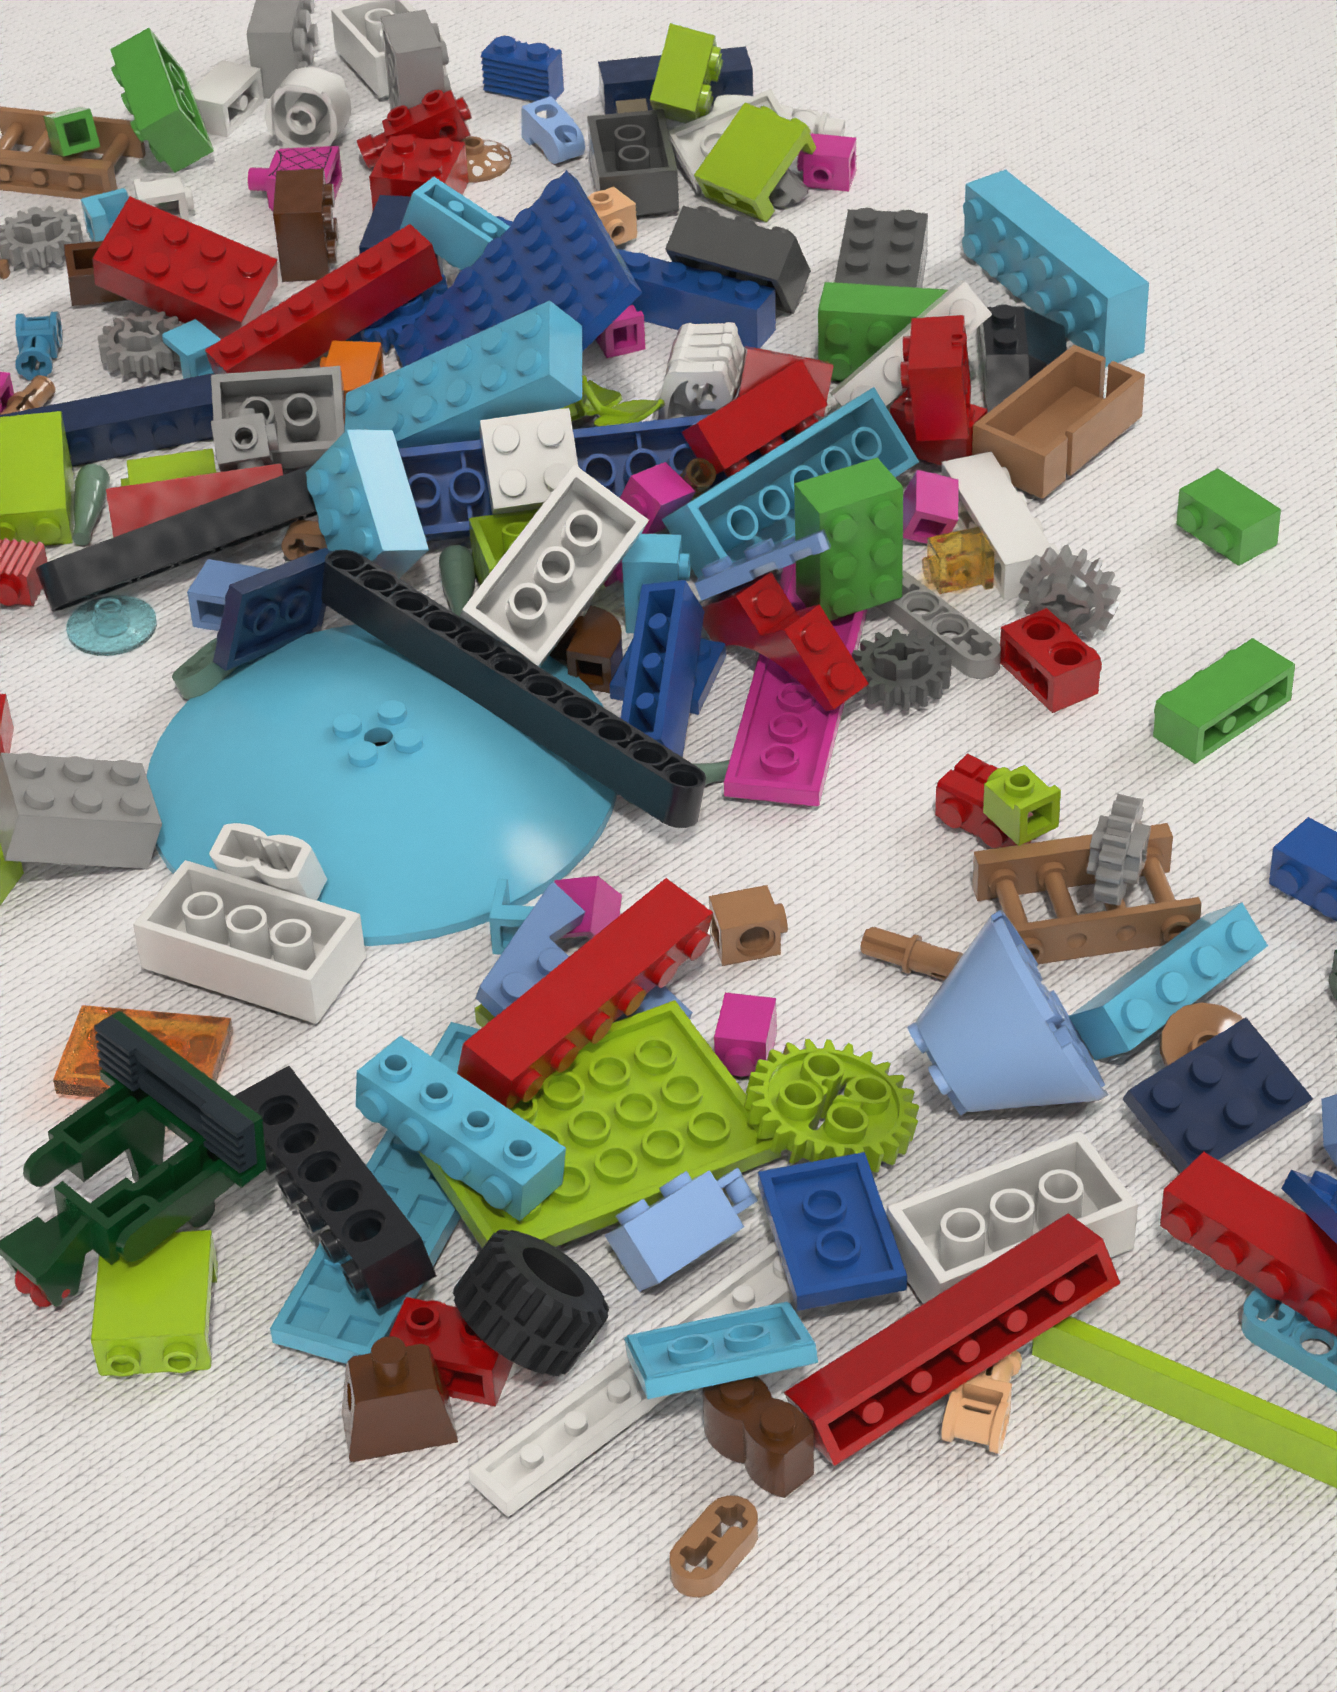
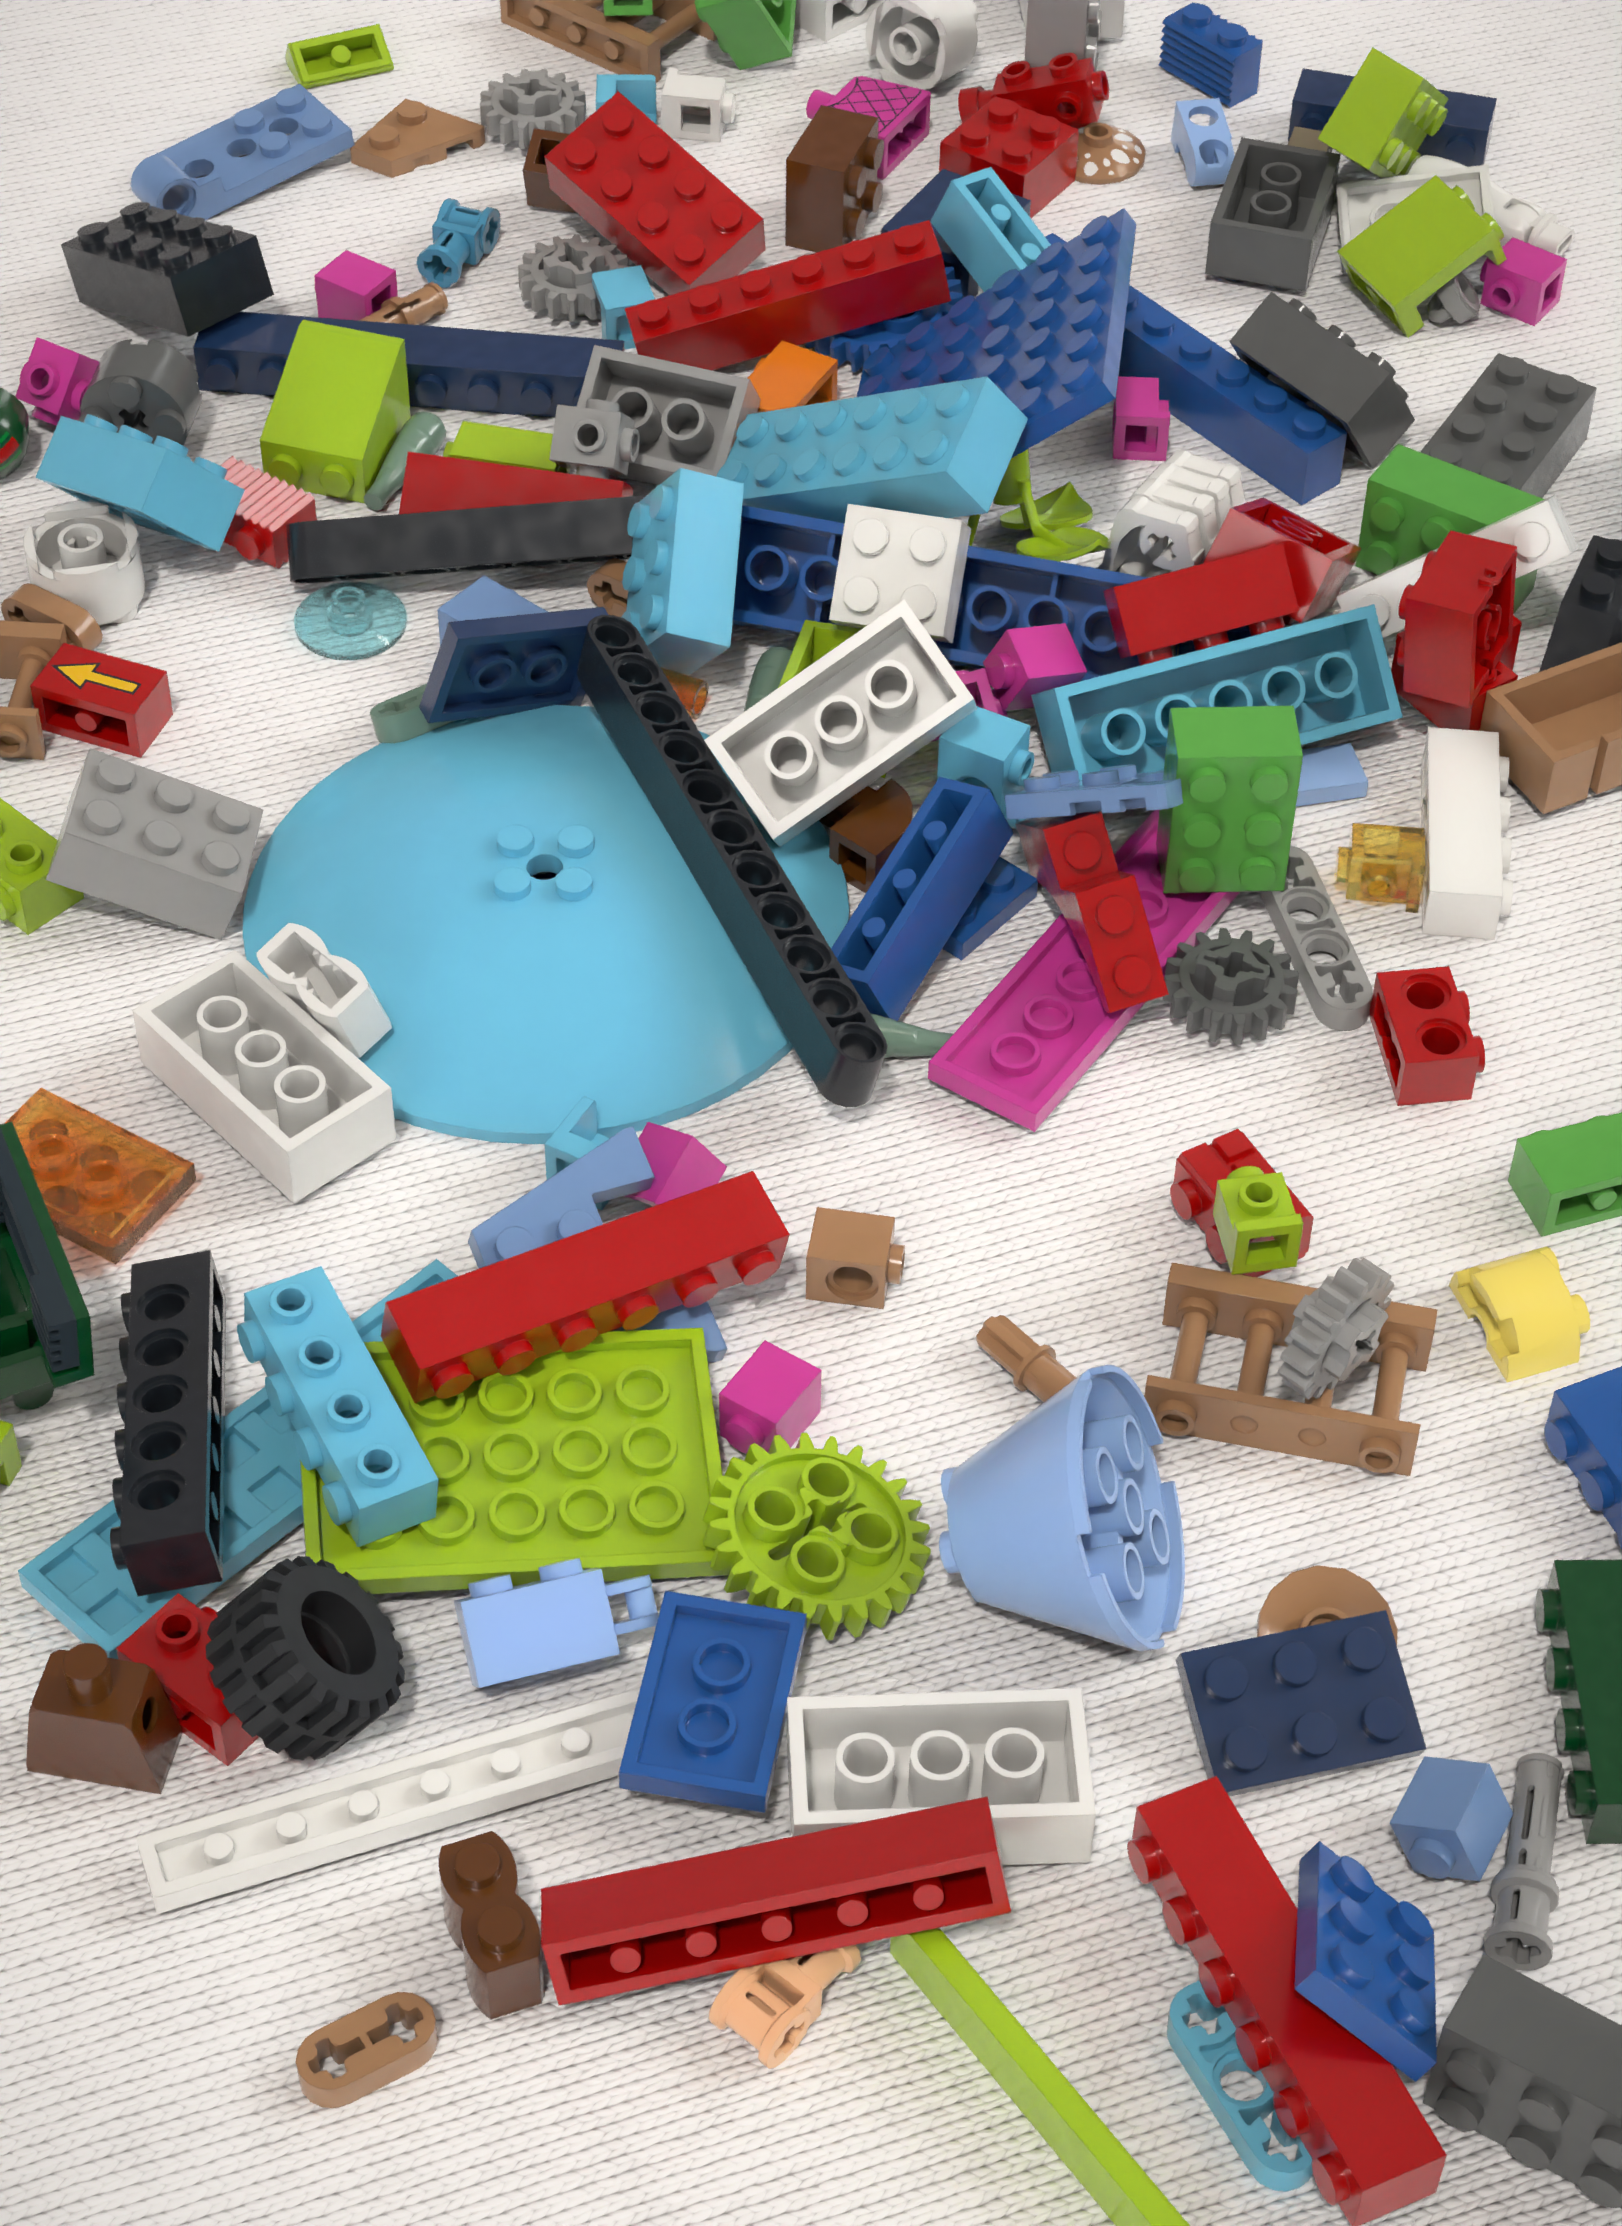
camera: 20 degrees right, 5 degrees up
(616, 214) = (1198, 278): light nougat brick -> none
(699, 475) = (1108, 646): clear orange hinge -> none
(719, 1349) = (487, 1806): medium azure tile -> none
(929, 506) = (1383, 781): dark pink brick -> none
(1071, 590) = (1489, 954): light grey gear -> none
(1168, 981) = (1323, 1523): medium azure brick -> none
(1218, 808) = (1524, 1312): none -> light yellow cylinder

